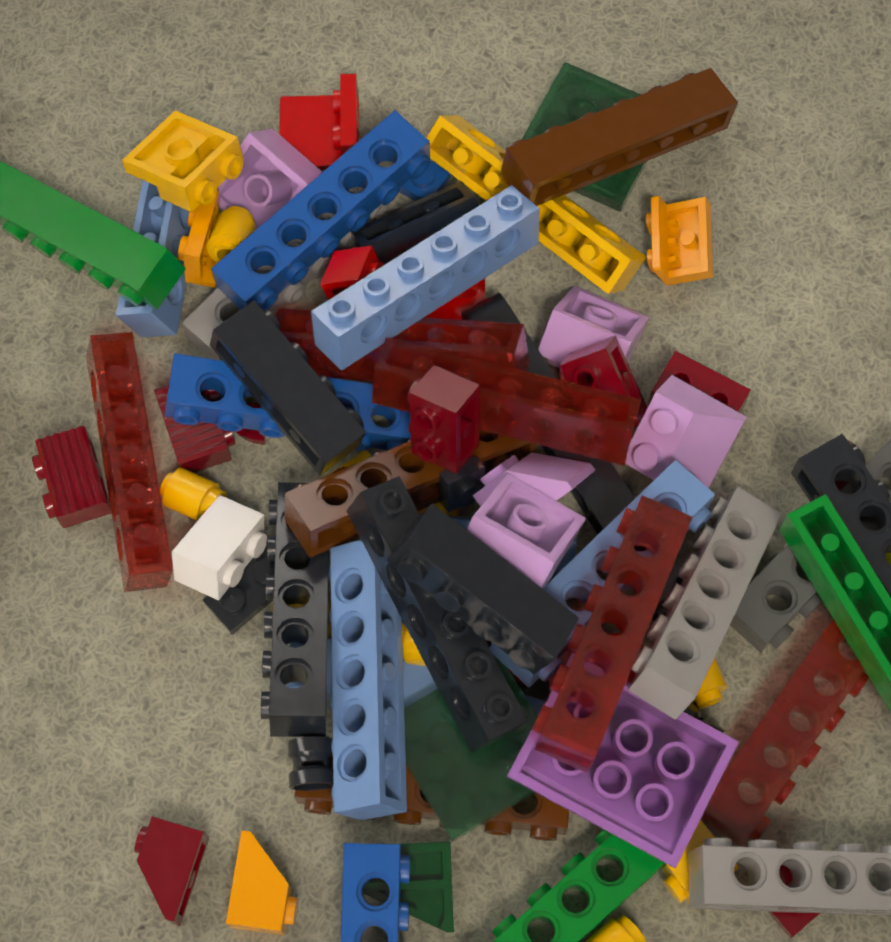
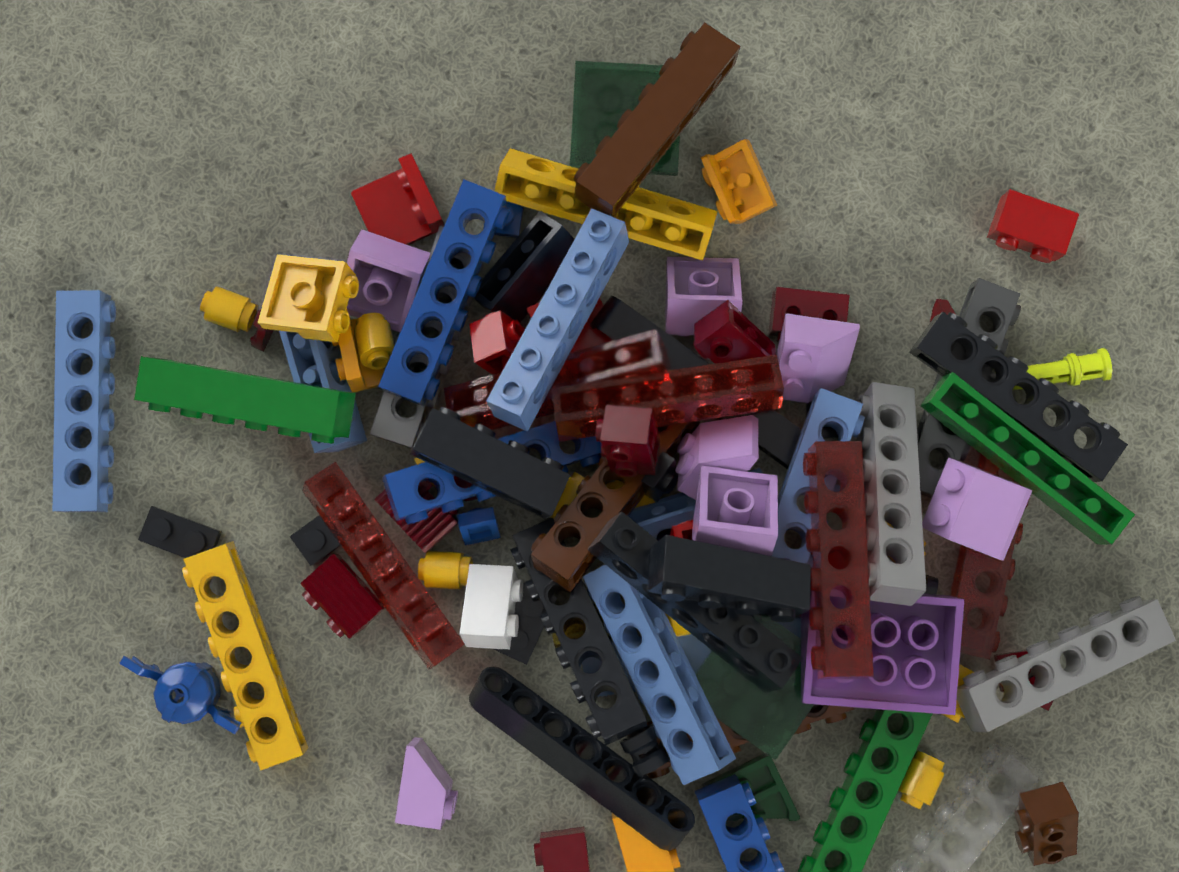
camera: 25 degrees left, 15 degrees up
(54, 704) = (424, 789): none -> lavender slope
(74, 410) = (315, 541): none -> black plate
(101, 155) = (228, 309): none -> yellow brick
(126, 193) = (261, 336): none -> dark red tile
(241, 753) = (581, 758): none -> black beam
(249, 466) = (478, 525): none -> blue plate
(795, 658) = (976, 508): none -> lavender slope

